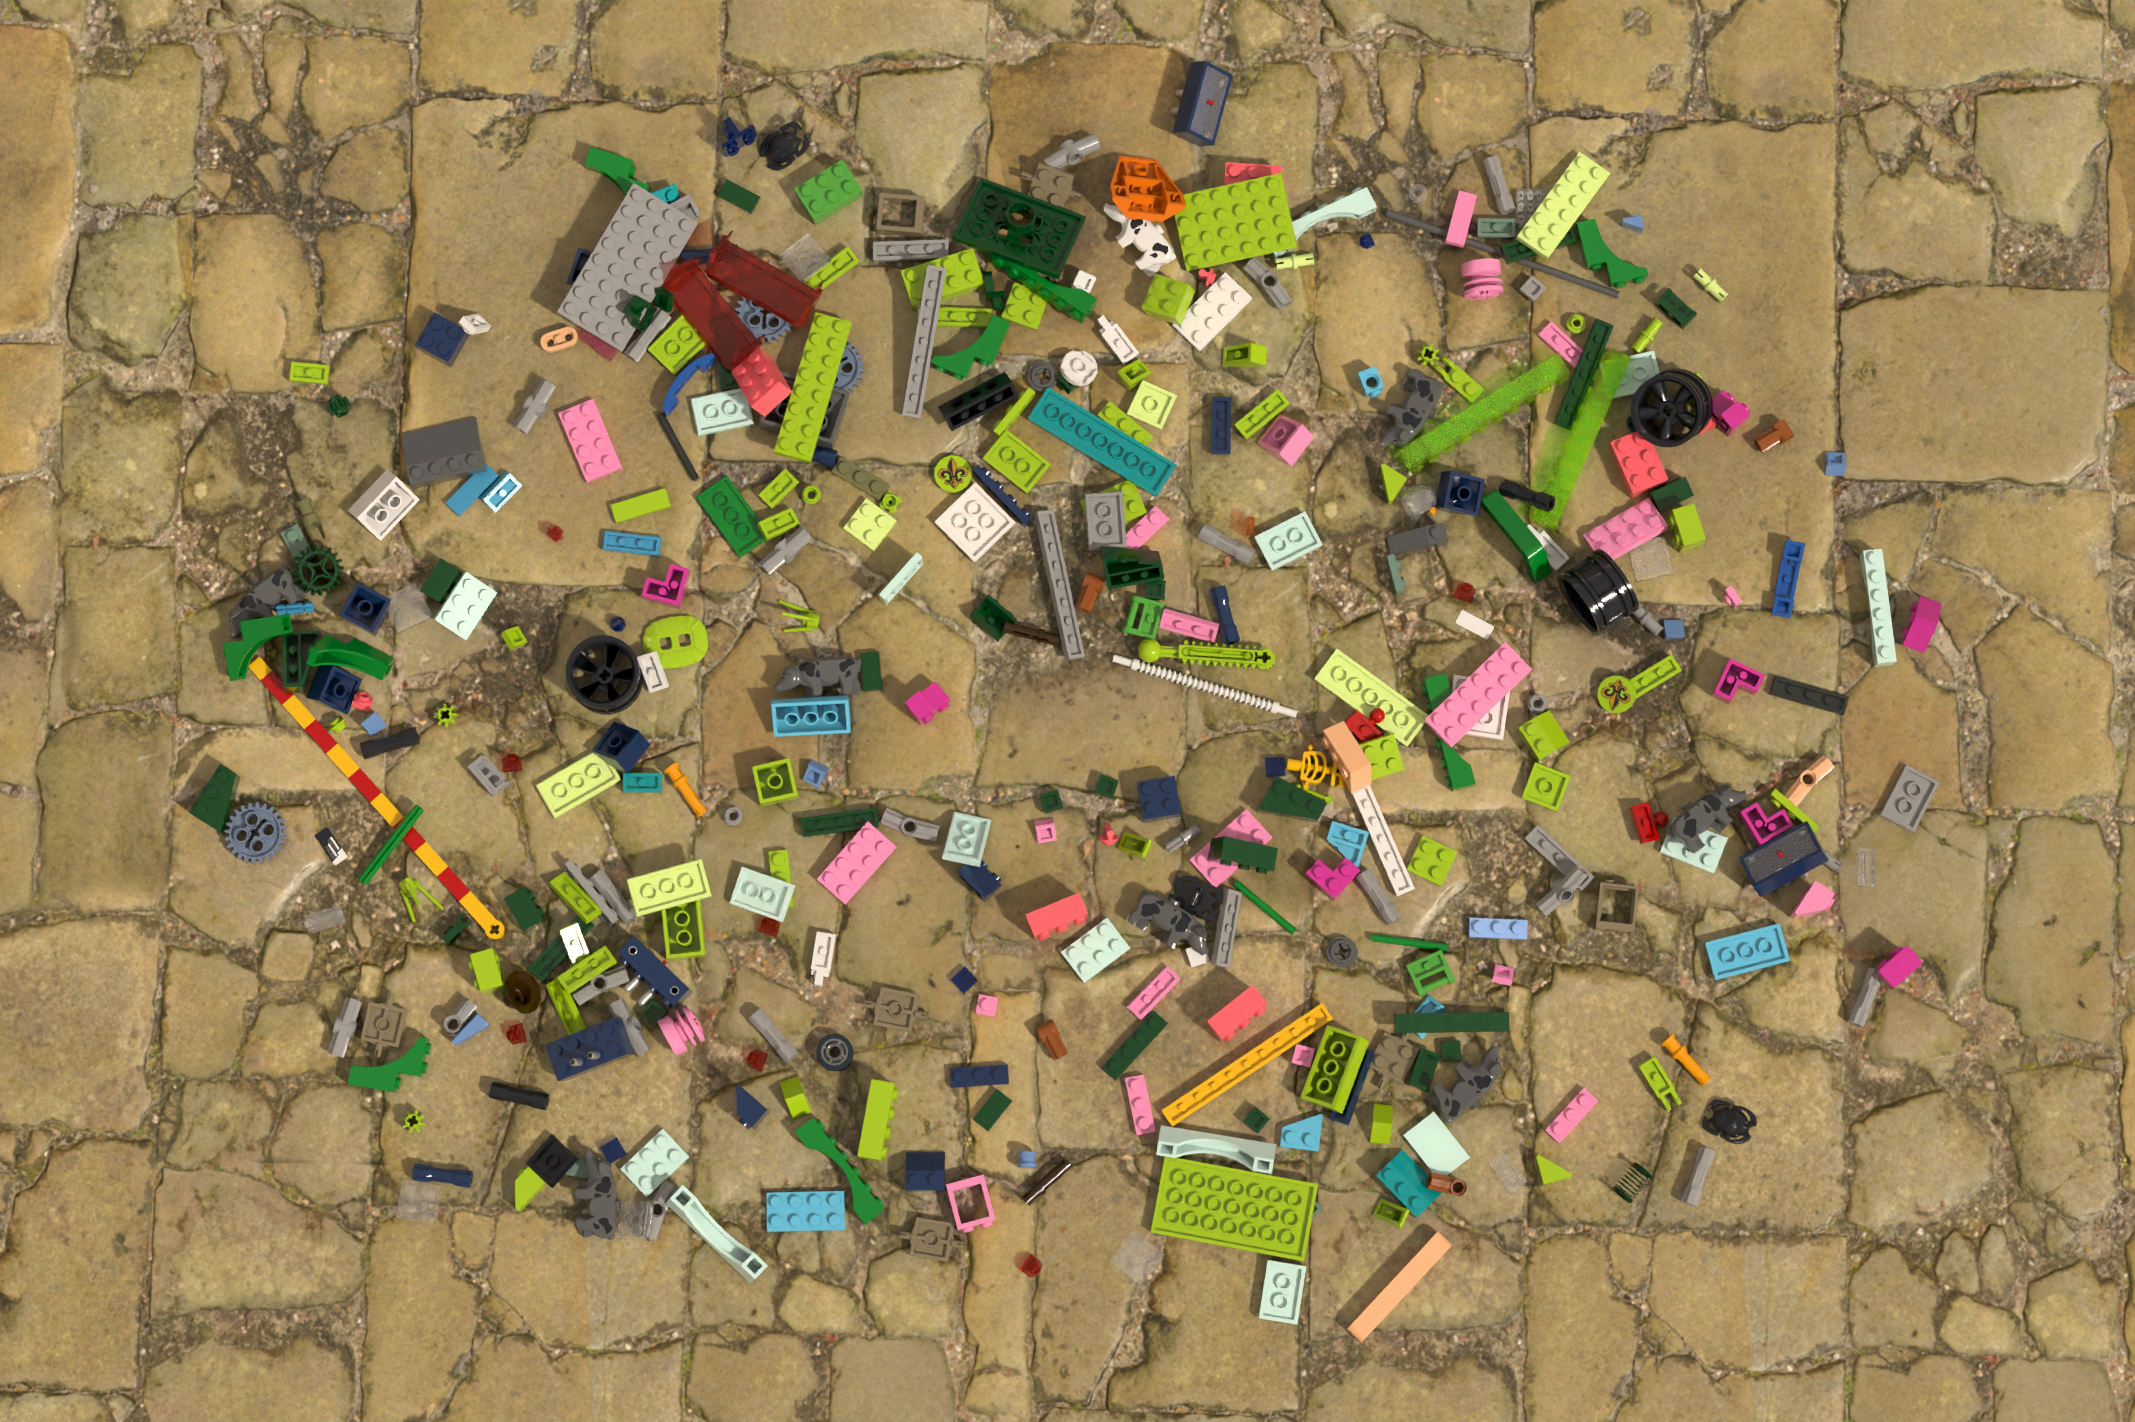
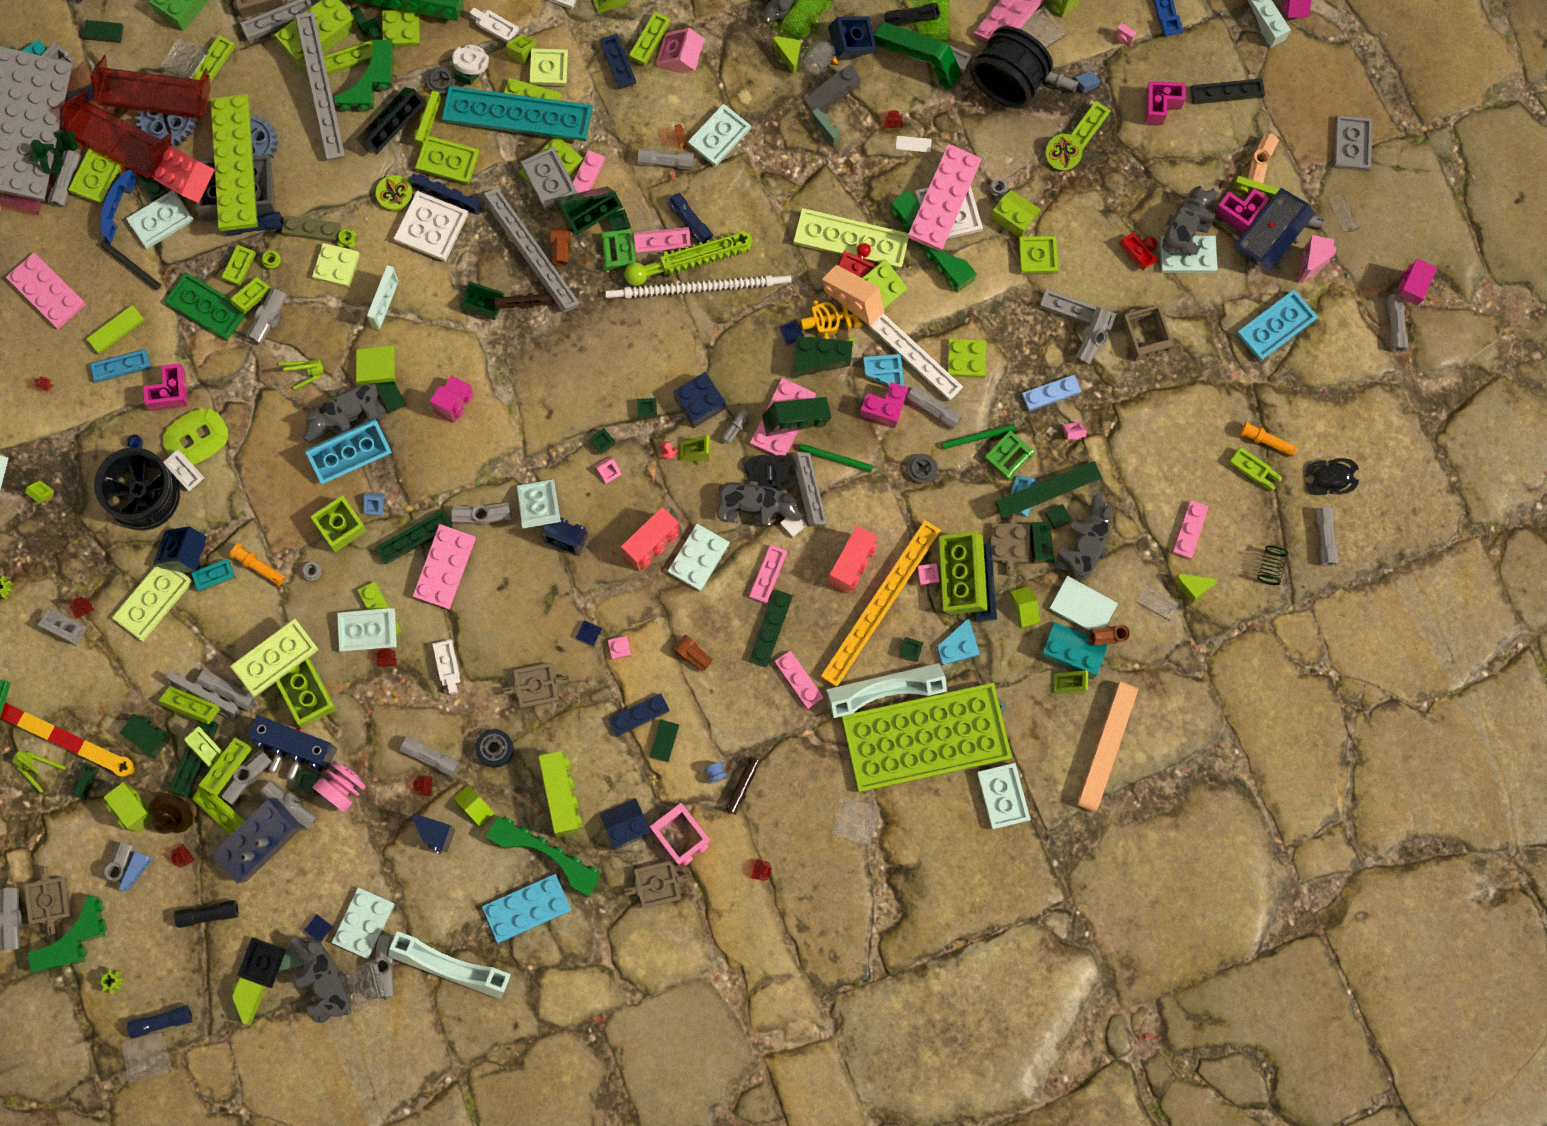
camera: 30 degrees left, 5 degrees down
(868, 640) = (375, 365): none -> lime tile

